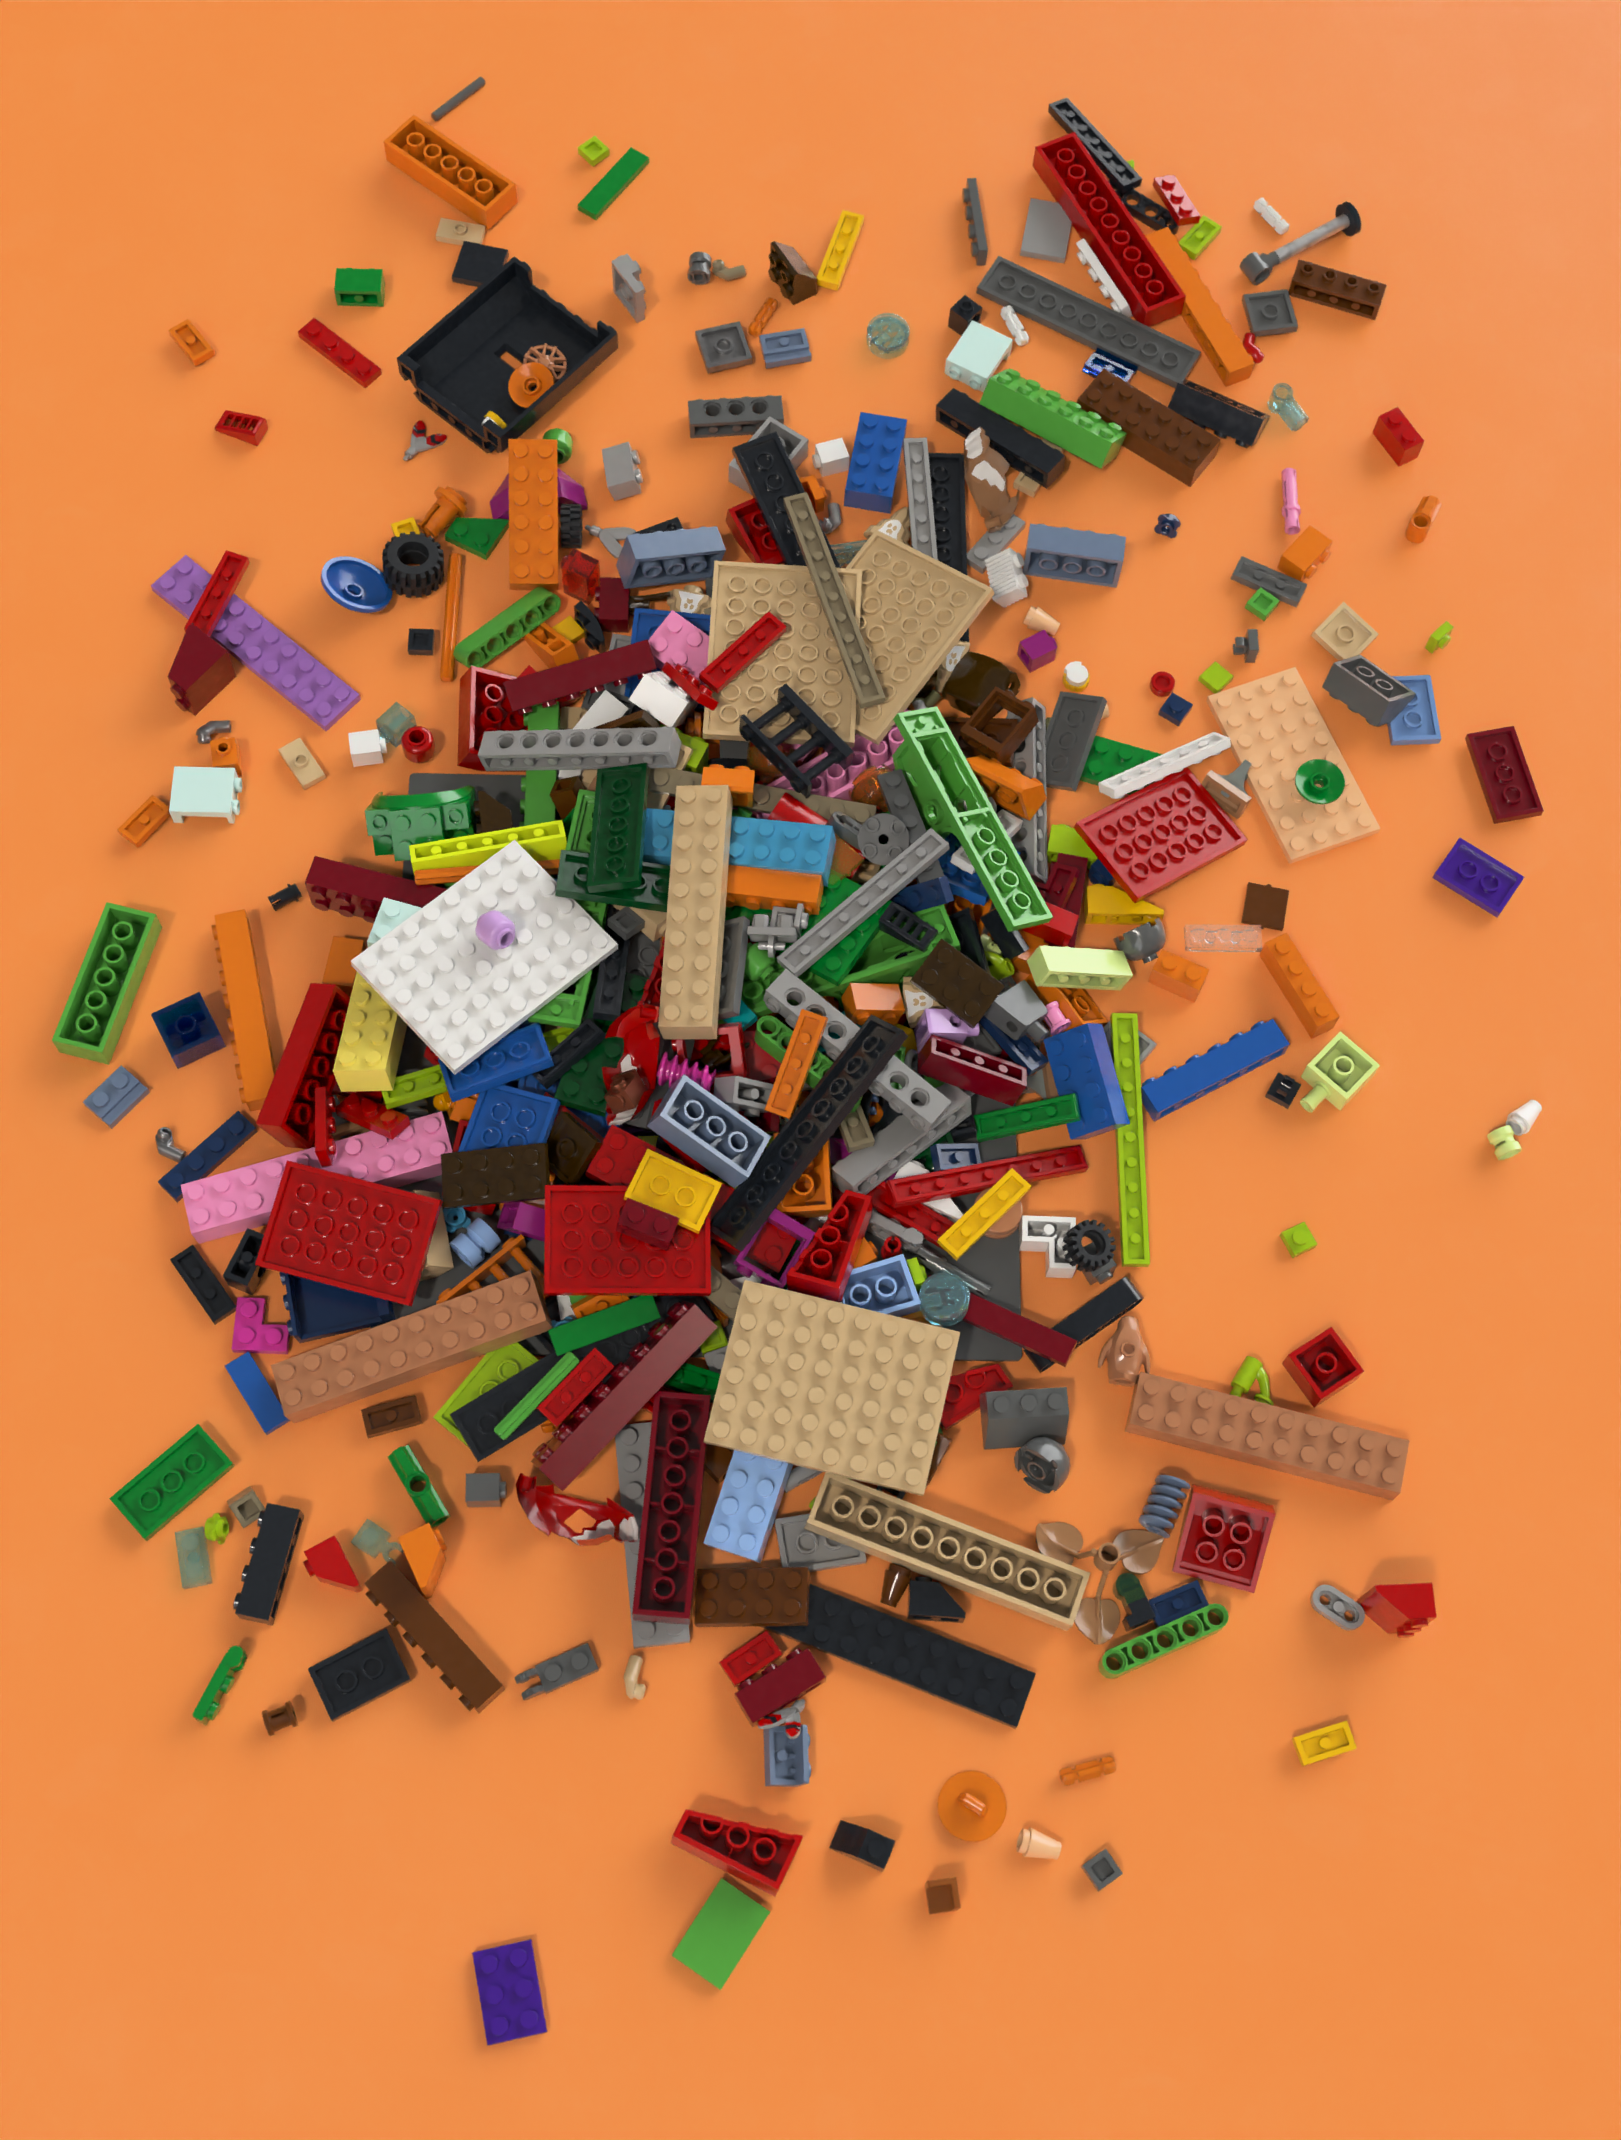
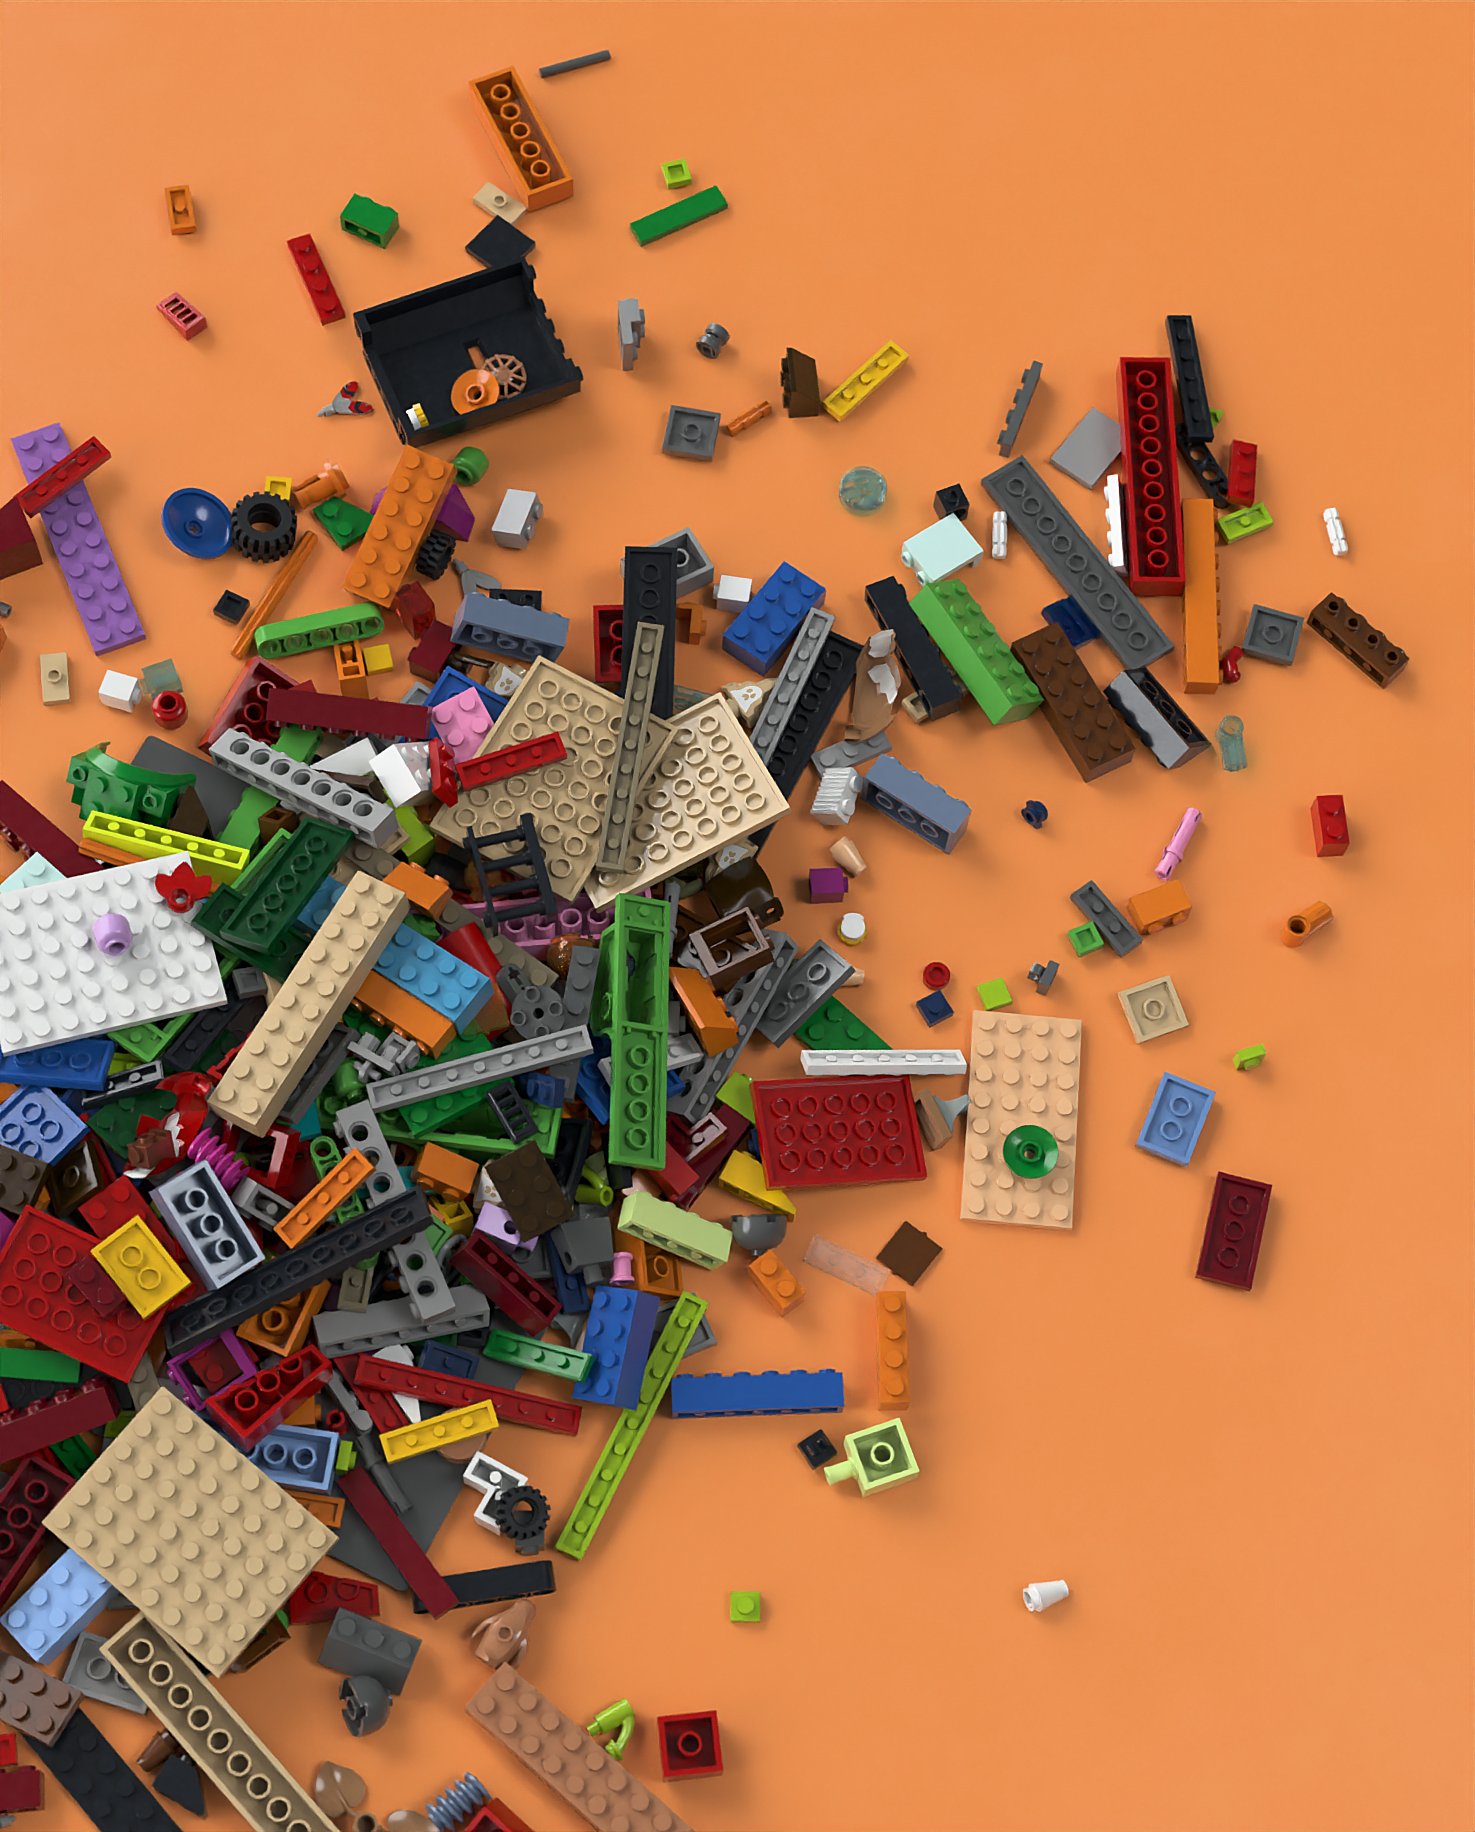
camera: 25 degrees right, 0 degrees up
(529, 866) = (183, 885): none -> red plate
(593, 633) = (399, 667): black slope -> none
(727, 273) = (738, 356): dark tan arm -> none
(732, 415) = (647, 512): dark grey brick -> none
(785, 348) = (752, 460): sand blue plate -> none
(834, 519) = (701, 660): light grey arm -> none
(944, 1299) = (355, 1496): clear light blue head -> none
(1259, 267) = (1288, 581): piece -> none
(1367, 690) = (1139, 1078): dark grey slope -> none
(1478, 877) = (1143, 1325): dark purple plate -> none
(1504, 1142) = (1008, 1610): yellowish green wheel -> none

